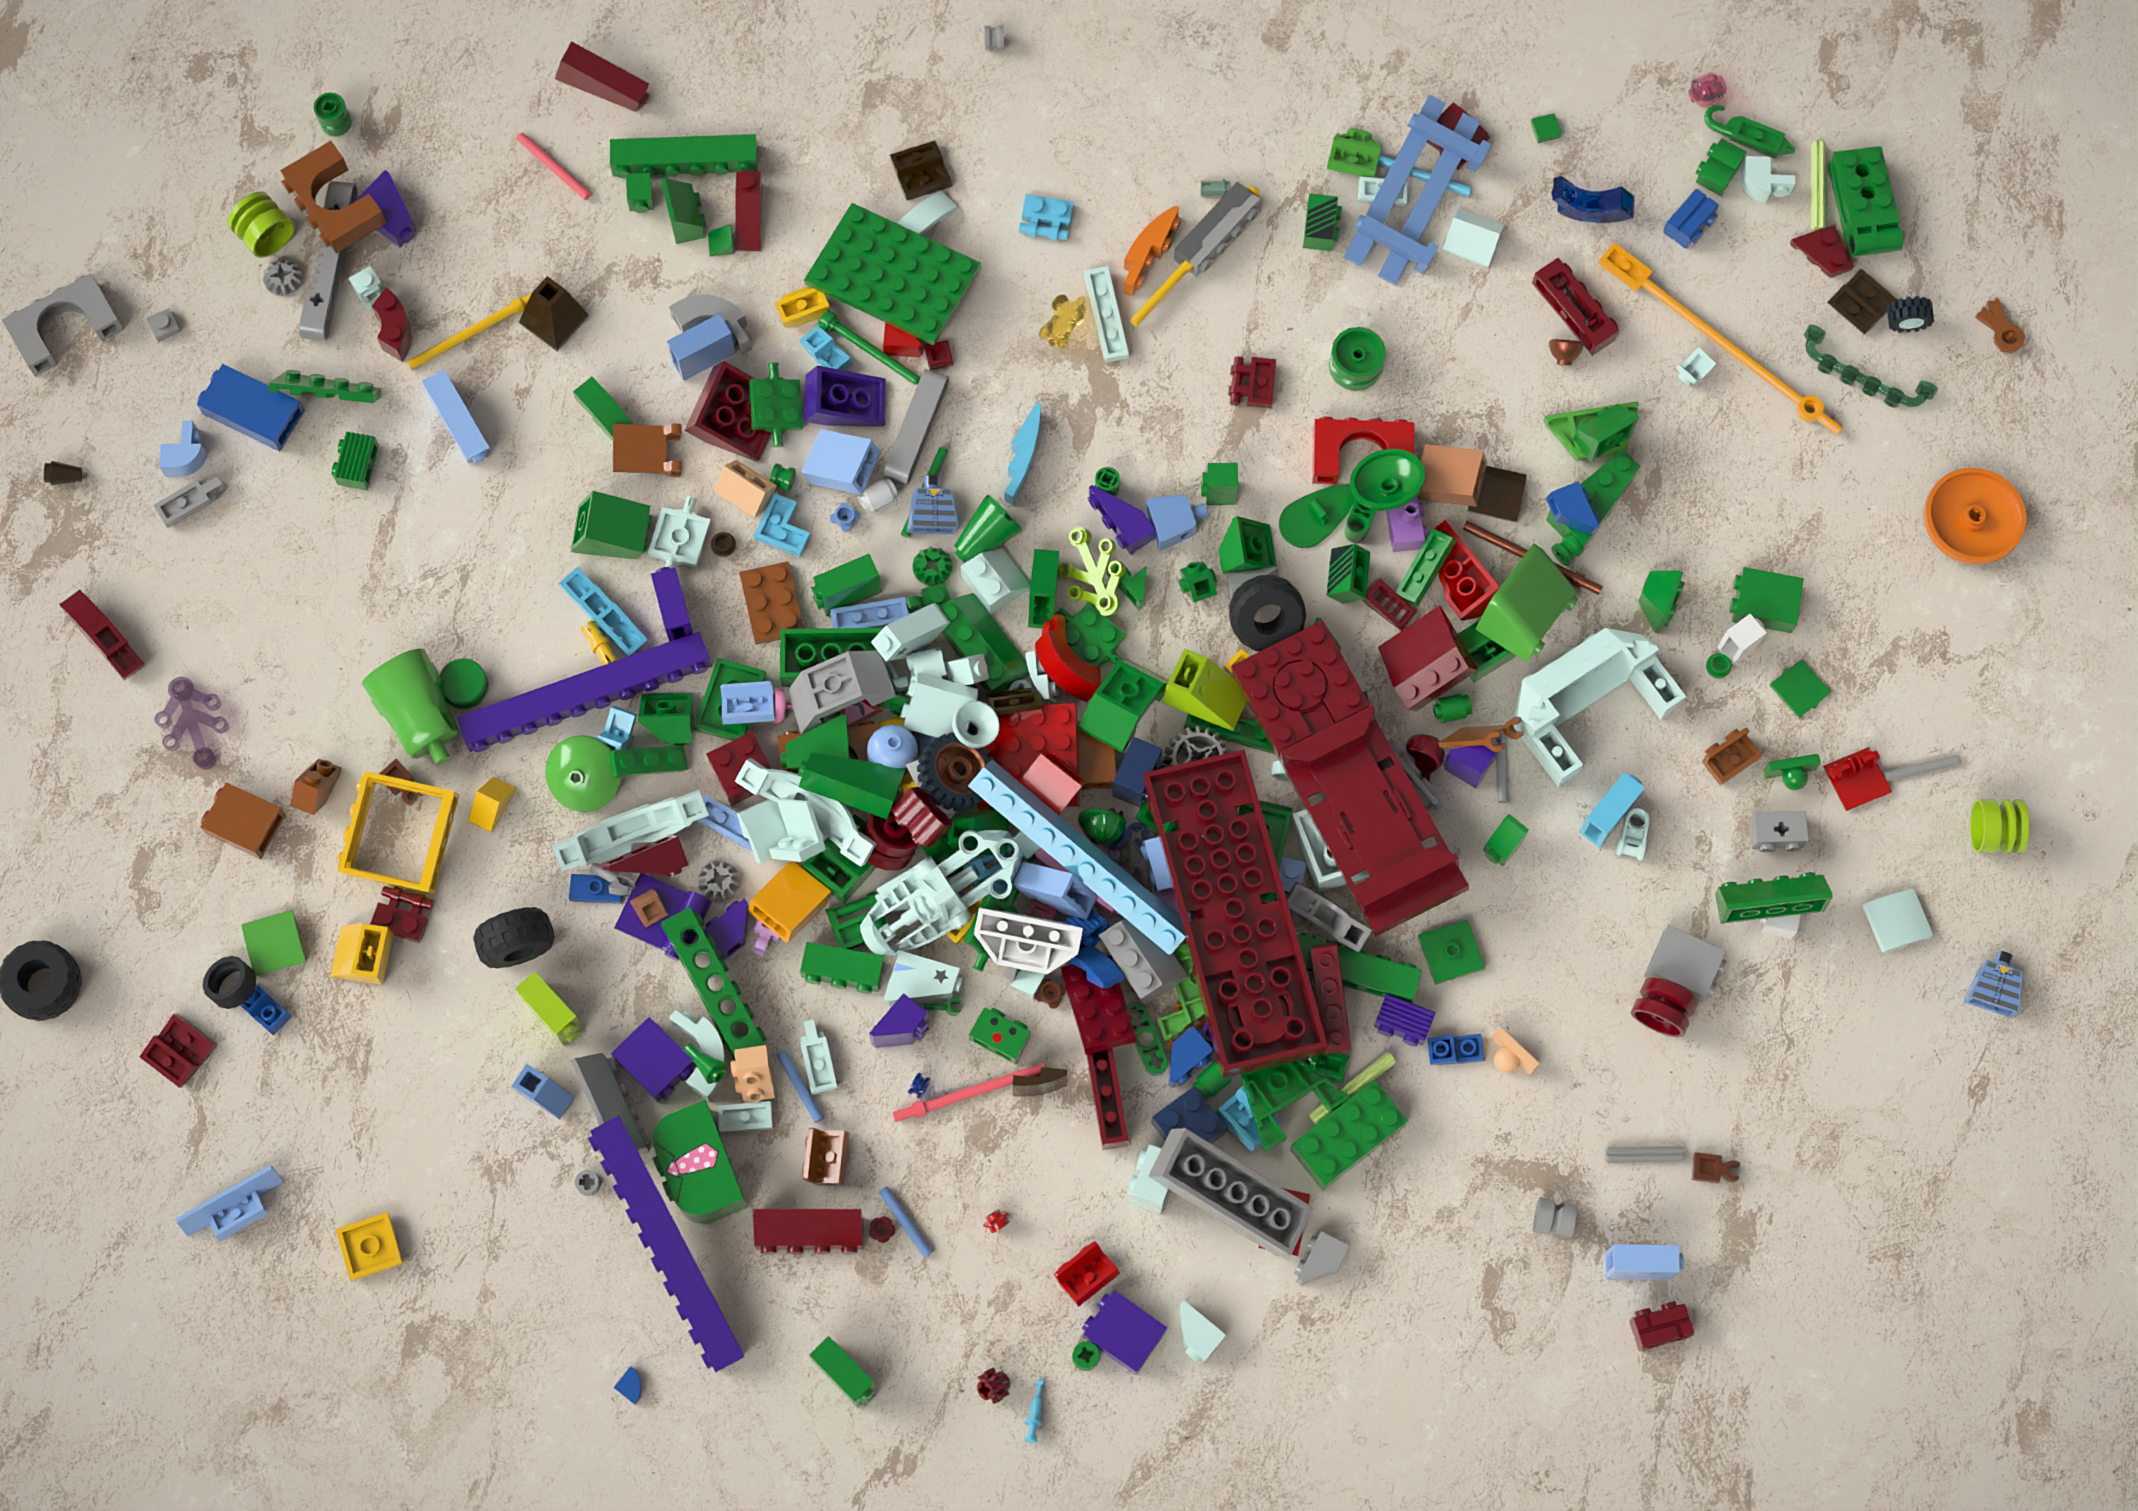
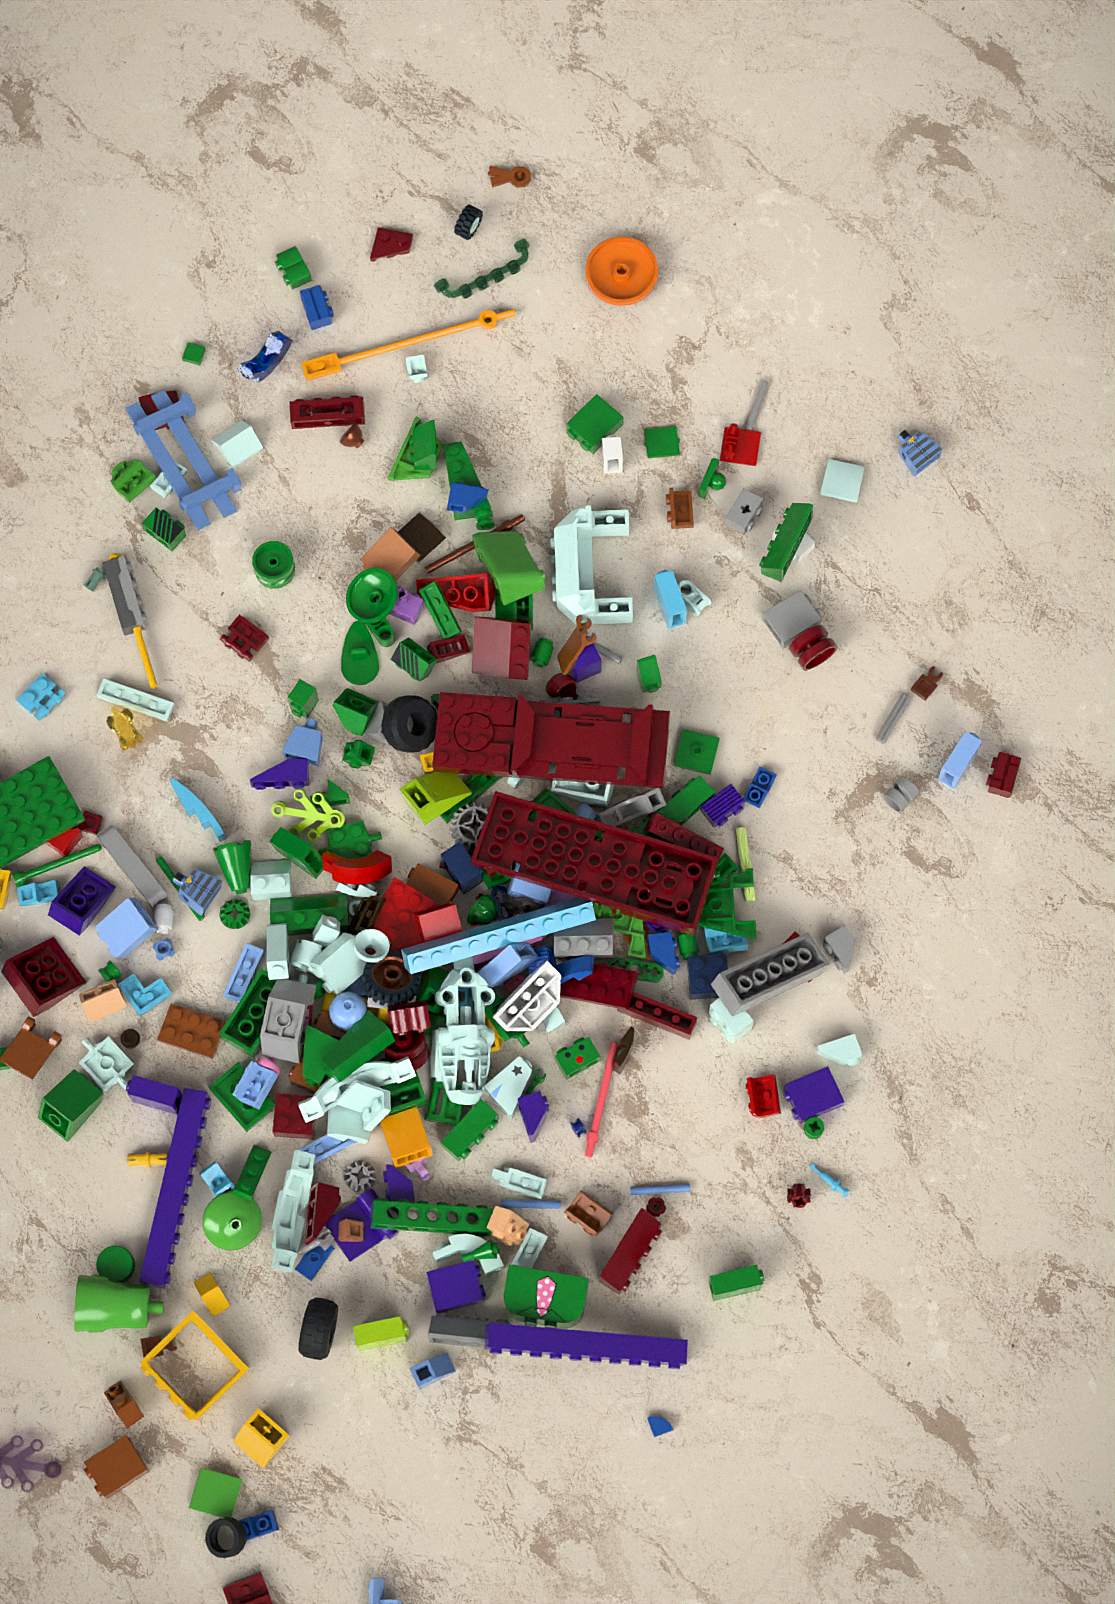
camera: 55 degrees left, 0 degrees up
(369, 1246) = (464, 1544): yellow plate -> none
(399, 921) = (257, 1398): dark red plate -> none
(593, 1177) = (511, 1383): light grey bush -> none
(603, 611) = (123, 1144): medium azure slope -> none
(668, 716) = (227, 1142): green slope -> none
(776, 404) = (56, 946): green plate -> none
(846, 584) = (215, 974): green brick -> none
(934, 594) = (258, 927): green plate -> none
(996, 1220) = (695, 1131): red plate -> none
(1047, 986) = (569, 1015): copper plate -> none
(1106, 485) = (252, 772): green wheel -> none
(1122, 703) = (411, 849): green slope -> none
(1149, 244) = (107, 645): orange slope -> none
(1332, 435) = (313, 612): red arch -> none
(1348, 1135) = (774, 884): green brick -> none
(1424, 175) = (175, 446): medium azure bar -> none
(1512, 1054) = (784, 755): light nougat tile -> none
(1660, 597) = (552, 484): green slope -> none
(1707, 89) = (236, 242): clear pink head -> none
(1718, 665) = (617, 479): green plate -> none
(1750, 133) = (283, 236): green plate -> none
(1759, 181) = (319, 252): light aqua brick -> none
(1818, 185) = (344, 219): yellowish green axle -> none
(1862, 301) = (438, 244): dark brown slope -> none
(1865, 201) = (376, 199): green hinge -> none
(1999, 826) = (823, 384): lime wheel -> none

